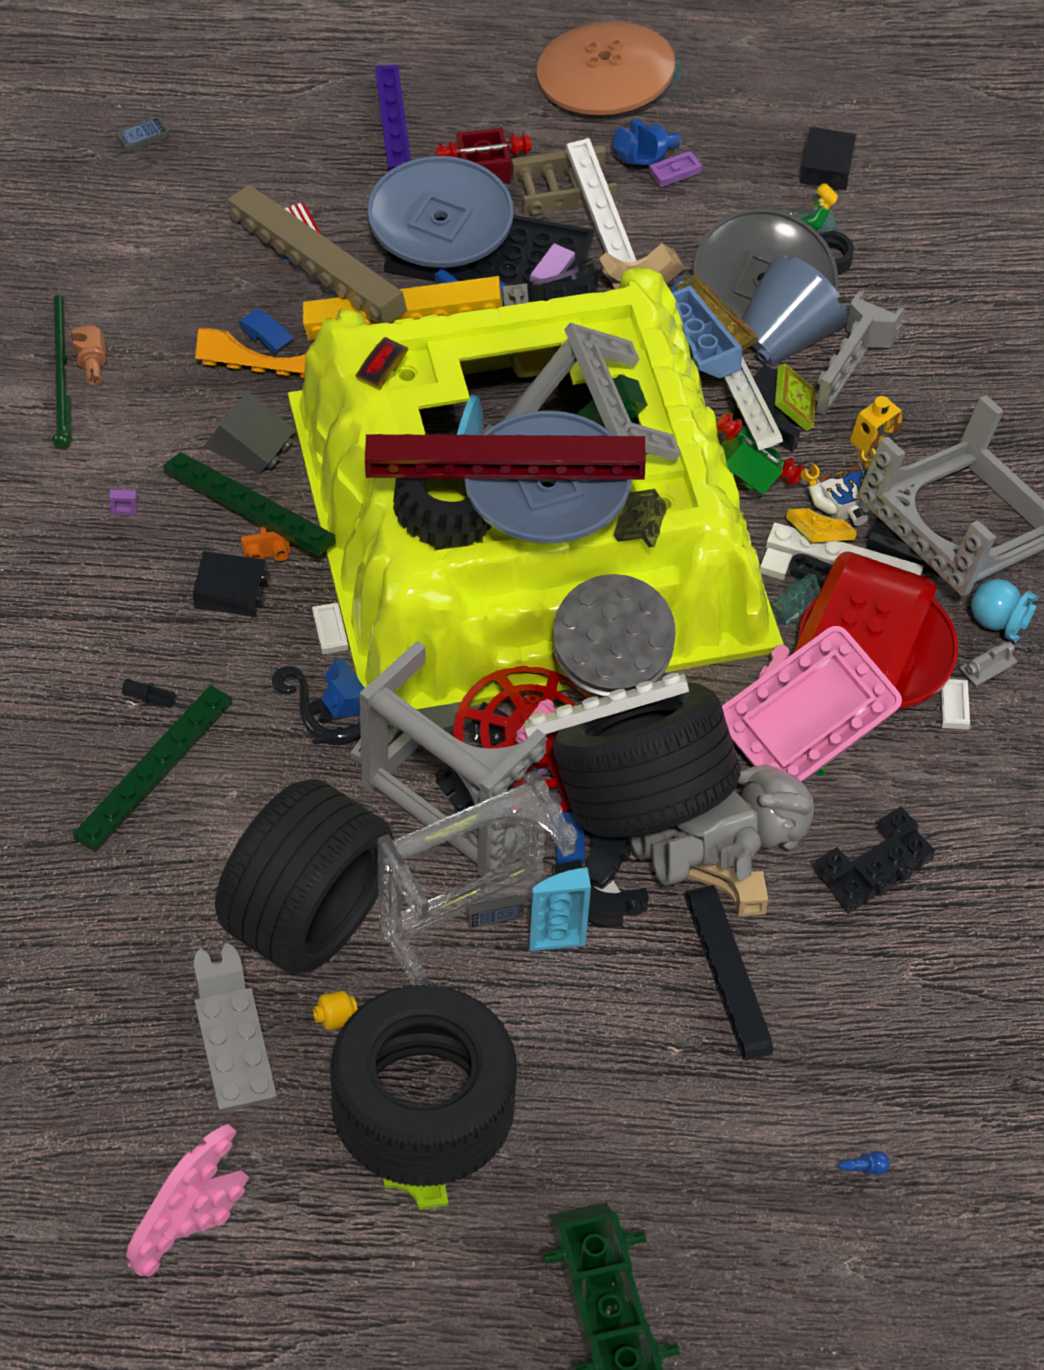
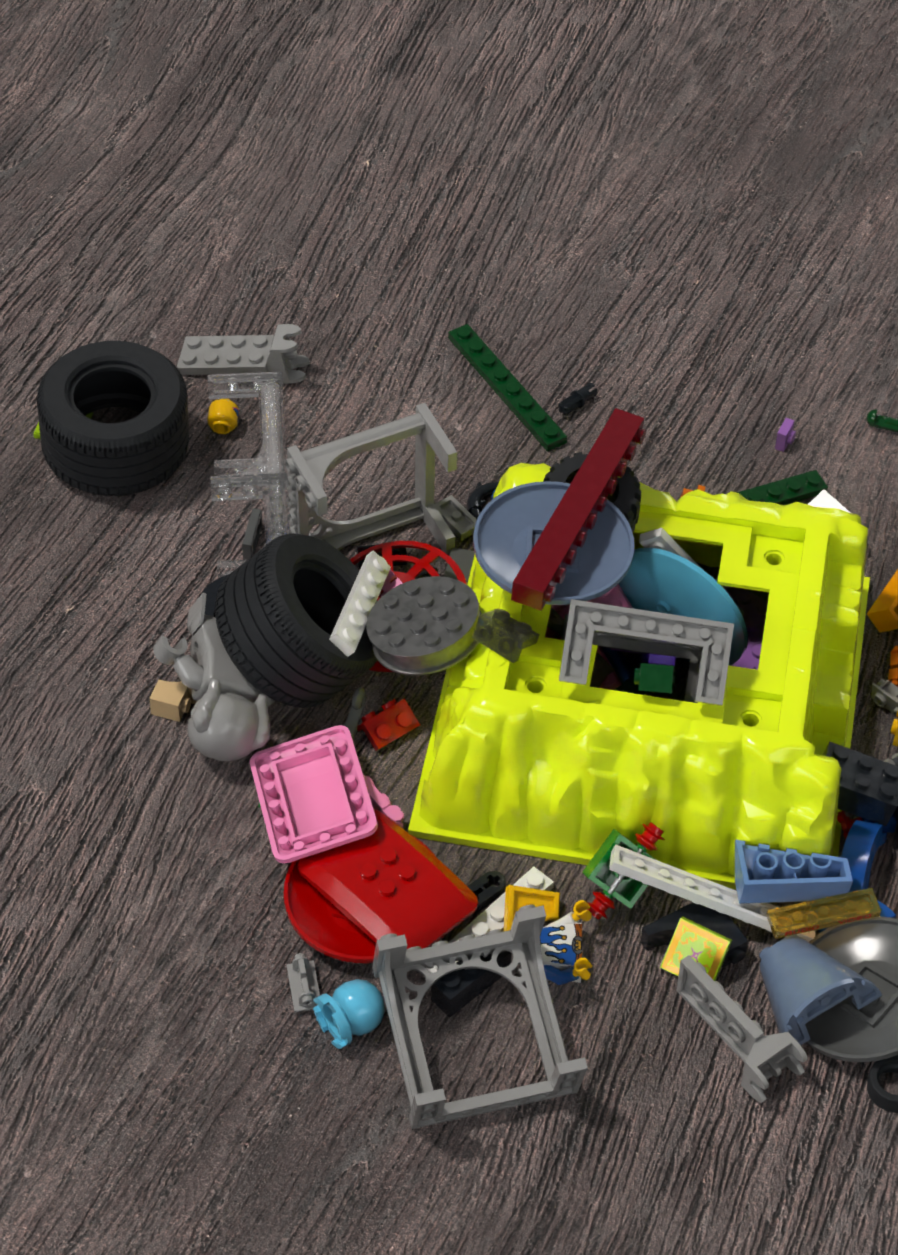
camera: 115 degrees right, 5 degrees down
(187, 1202) = (98, 257): bright pink plate -> none
(230, 584) = (668, 469): black brick -> none
(302, 876) = (326, 375): black tyre -> none
(380, 363) = (776, 518): slope -> none
(560, 911) = (204, 542): medium azure slope -> none
(729, 973) = (96, 658): black beam -> none
(775, 563) = (508, 865): white tile -> none
(796, 598) = (451, 854): clear light blue hinge -> none
(875, 423) = (626, 1005): yellow torso -> none
(880, 867) = (139, 810): black bracket -> none
(955, 704) = (276, 939): white tile -> none

